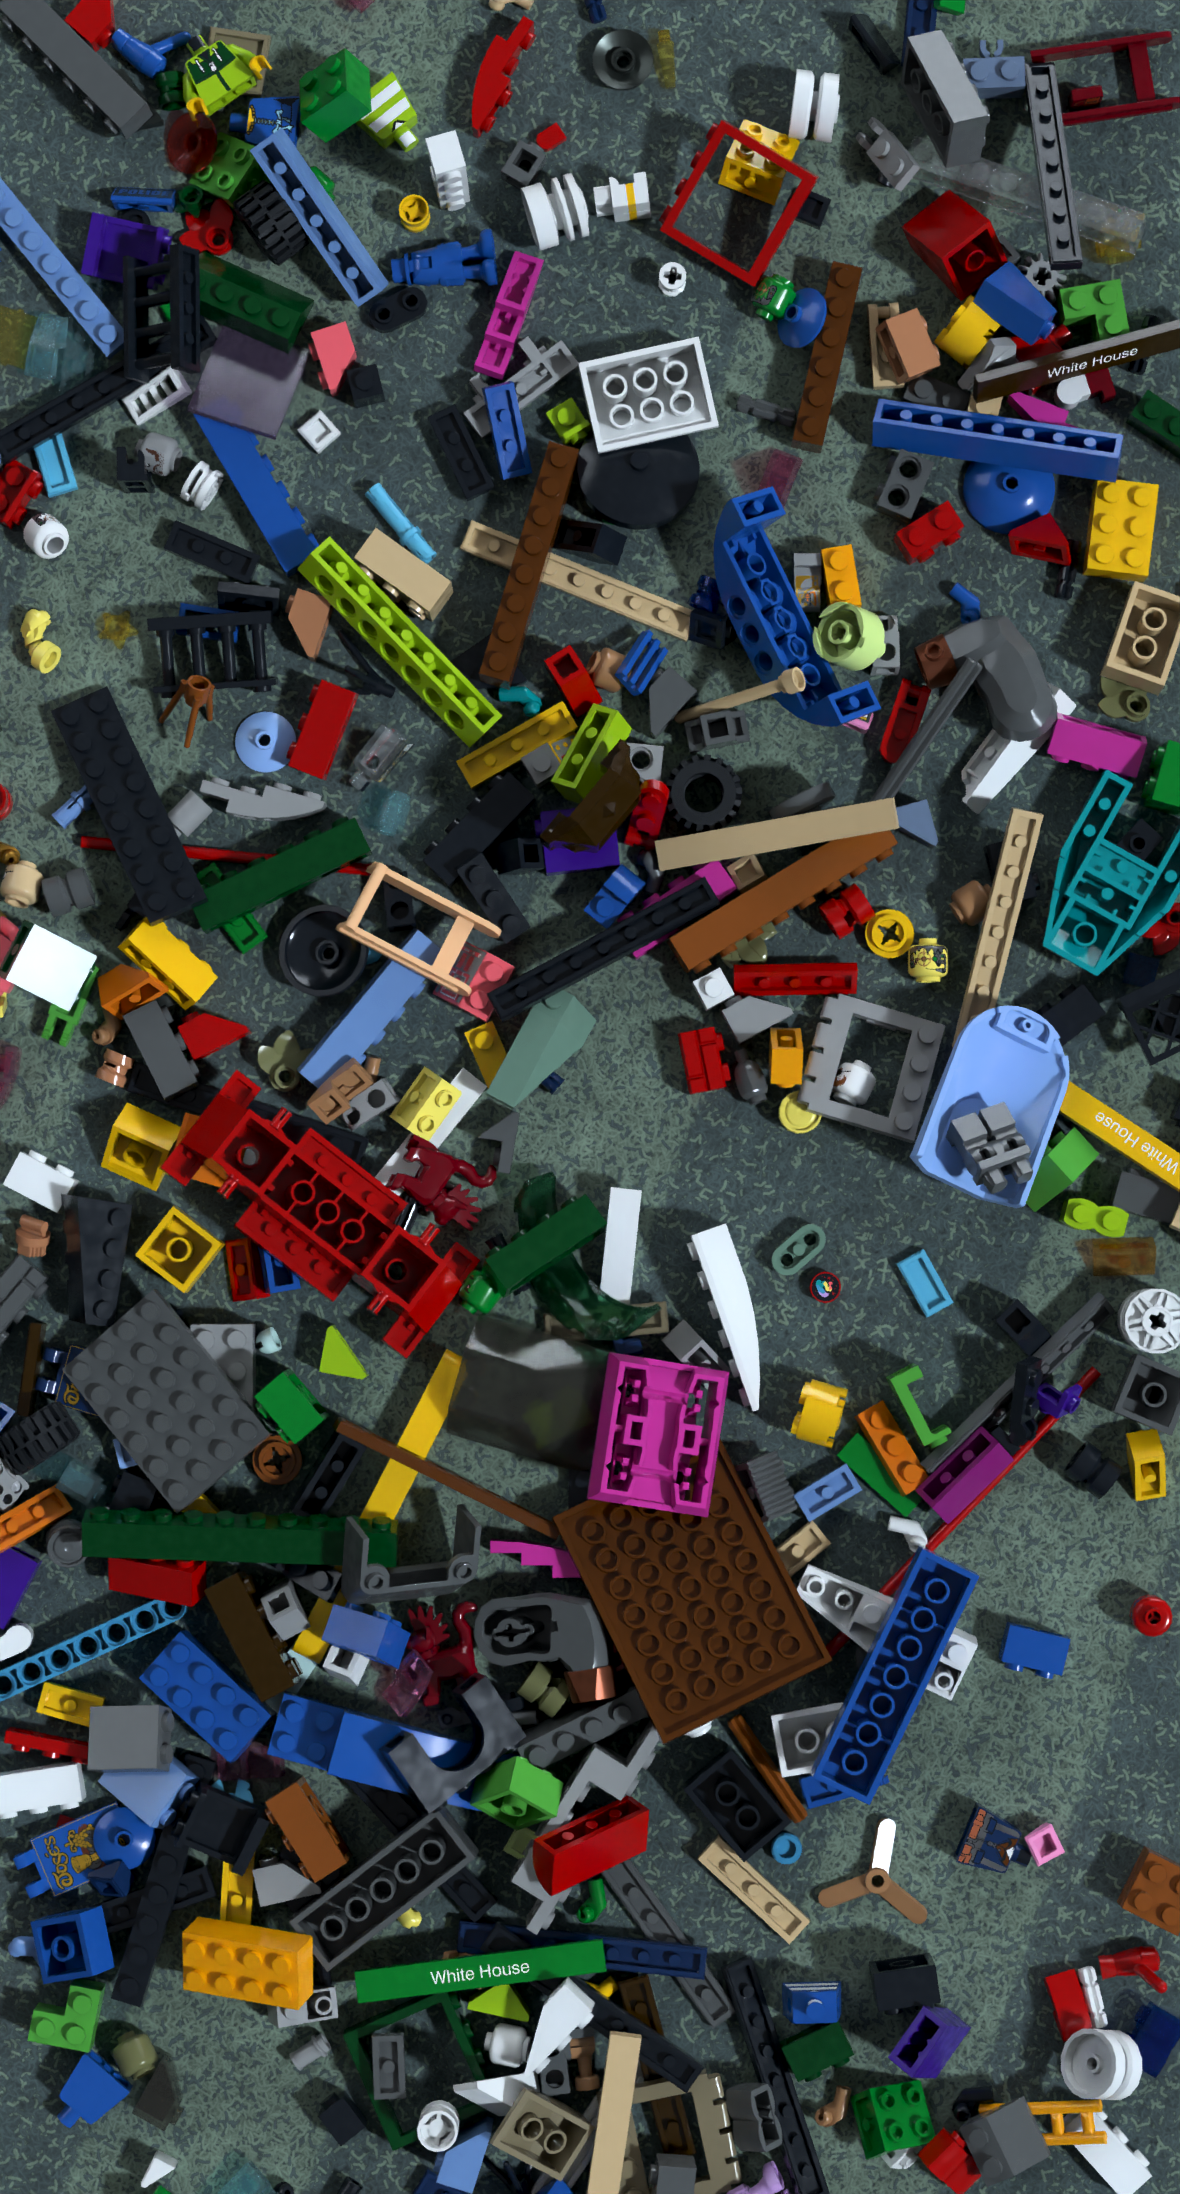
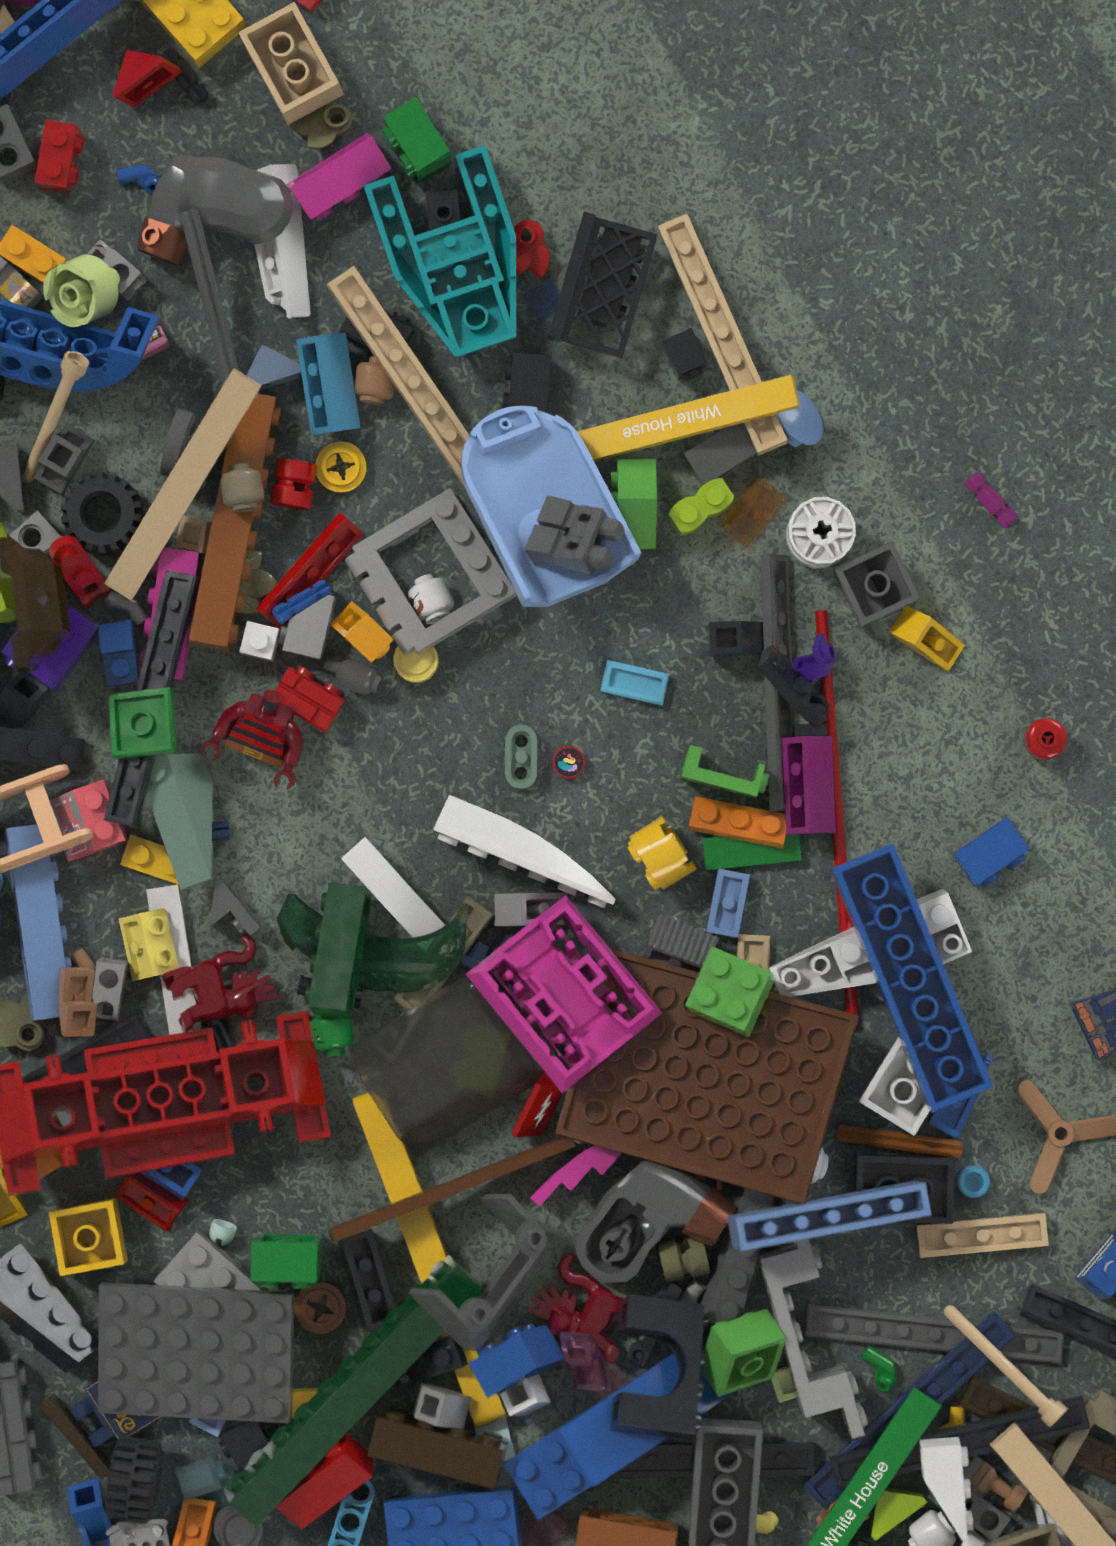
camera: 50 degrees left, 0 degrees up
(339, 1357) = (284, 1188): lime slope -> none
(559, 1489) = (538, 1109): none -> red slope
(580, 959) = (142, 723): none -> green tile
(590, 1844) = (833, 1330): red brick -> none
(651, 1049) = (261, 730): none -> dark red torso
(671, 1769) = (829, 1215): none -> medium blue brick
(674, 2050) = (1049, 1408): none -> tan piece
(767, 1553) = (730, 991): none -> bright green brick
(768, 993) = (301, 601): none -> blue axle
(811, 878) = (242, 488): none -> dark tan head
(903, 720) = (186, 307): red plate -> none
(911, 1530) = (814, 864): white arm -> none
(927, 961) = (388, 456): light yellow head -> none
(941, 871) = (328, 383): none -> dark azure brick
(1005, 508) = (90, 83): blue dish -> none
(1093, 1470) = (894, 682): black wheel -> none

